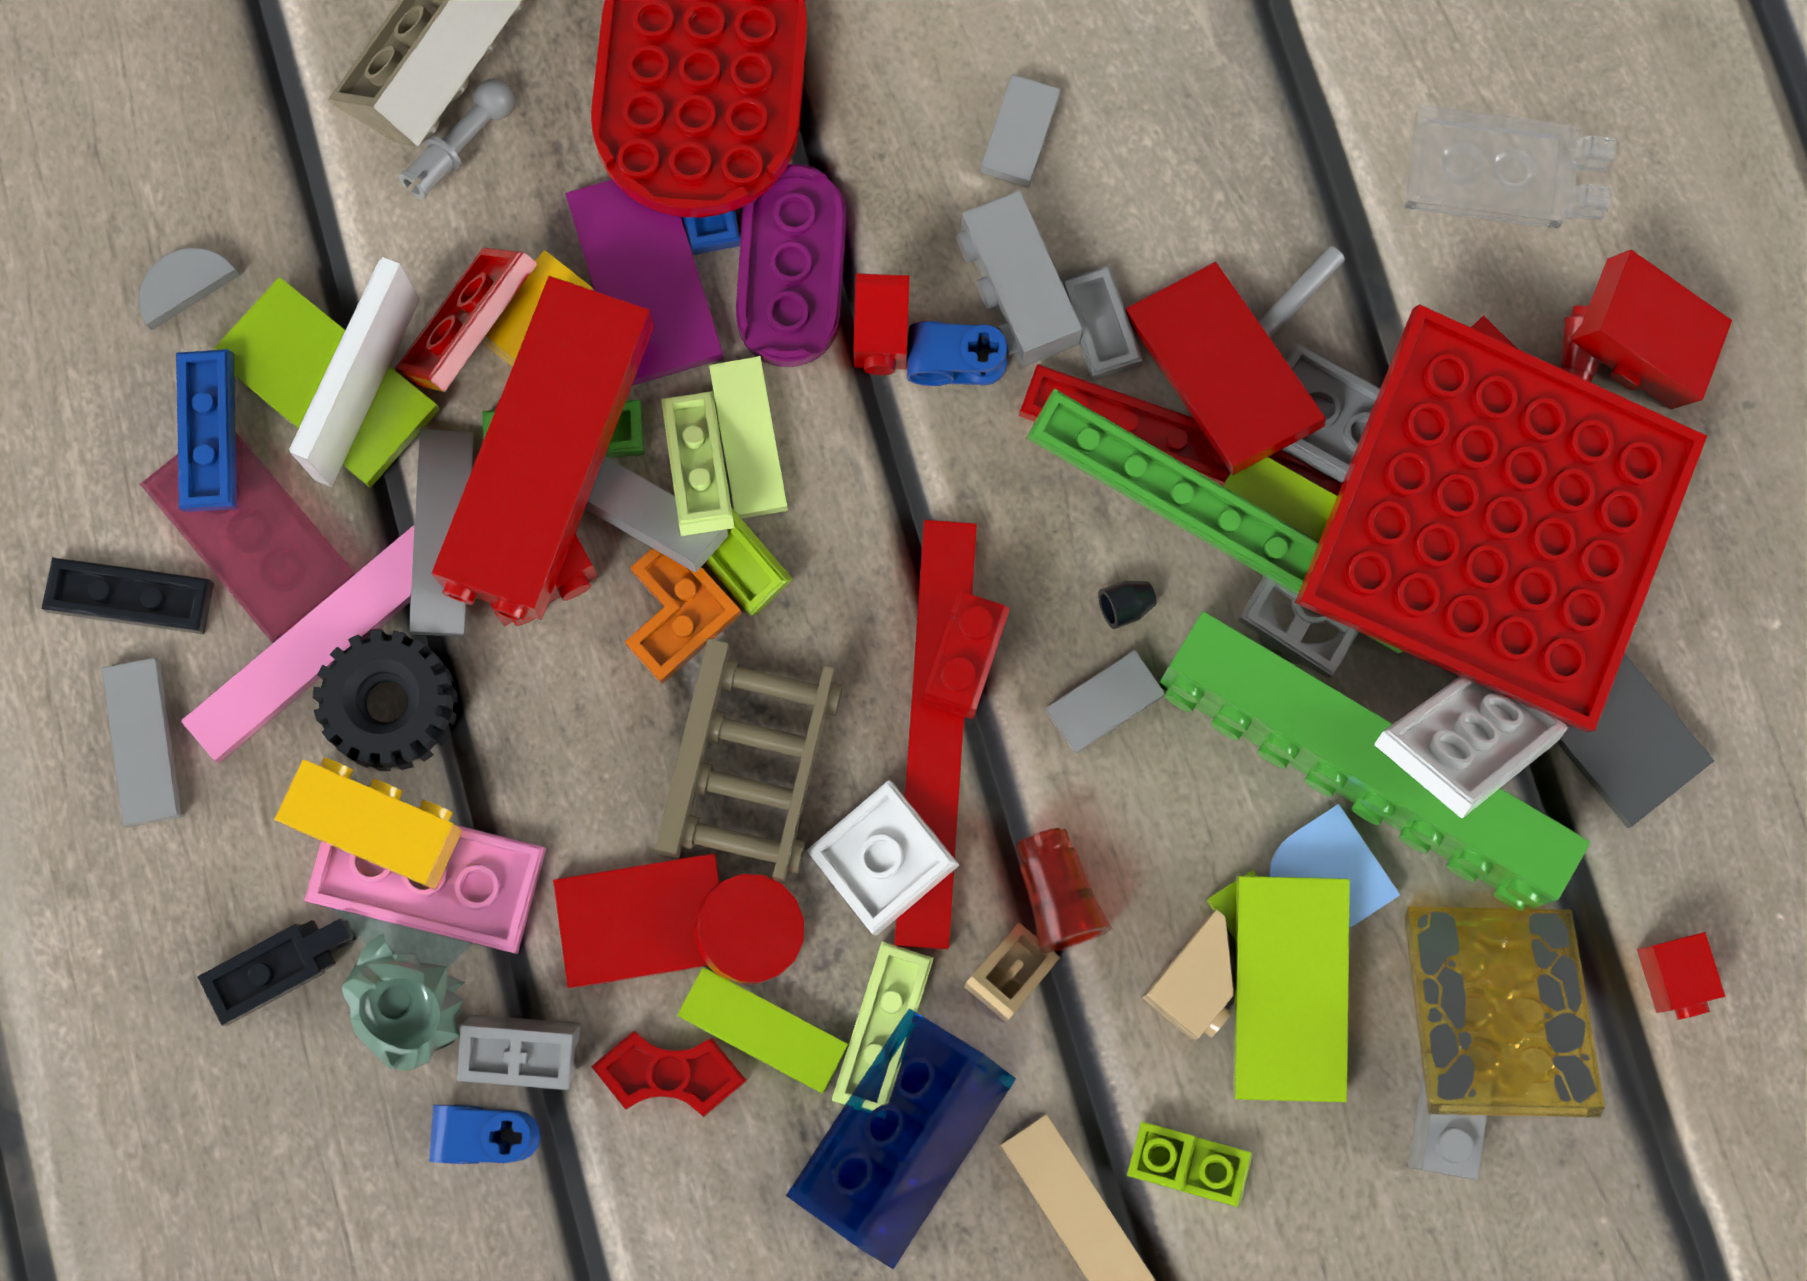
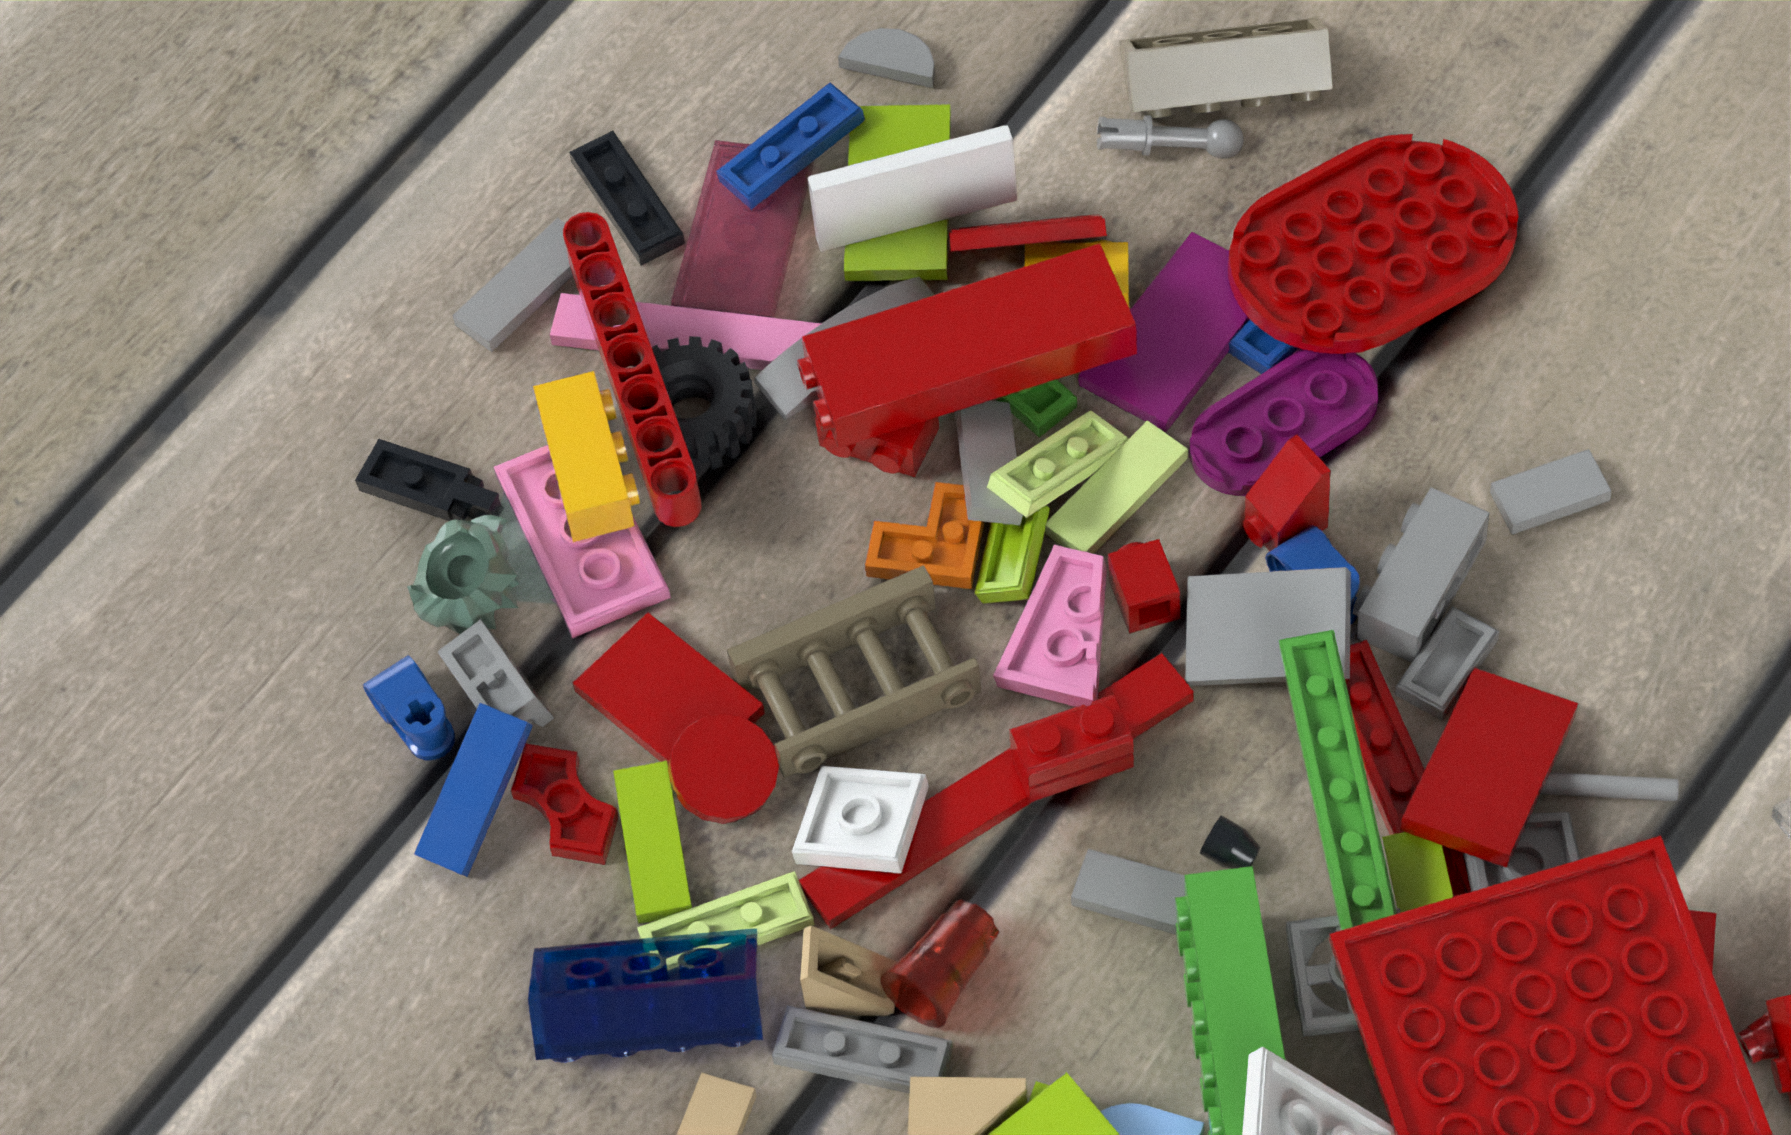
camera: 60 degrees right, 20 degrees down
(306, 711) = (633, 386): none -> red beam
(608, 1142) = (473, 789): none -> blue tile
(843, 580) = (1059, 632): none -> bright pink wing
(854, 485) = (1144, 585): none -> red brick
(973, 427) = (1242, 617): none -> light grey tile
(1075, 1007) = (858, 1050): none -> light grey tile

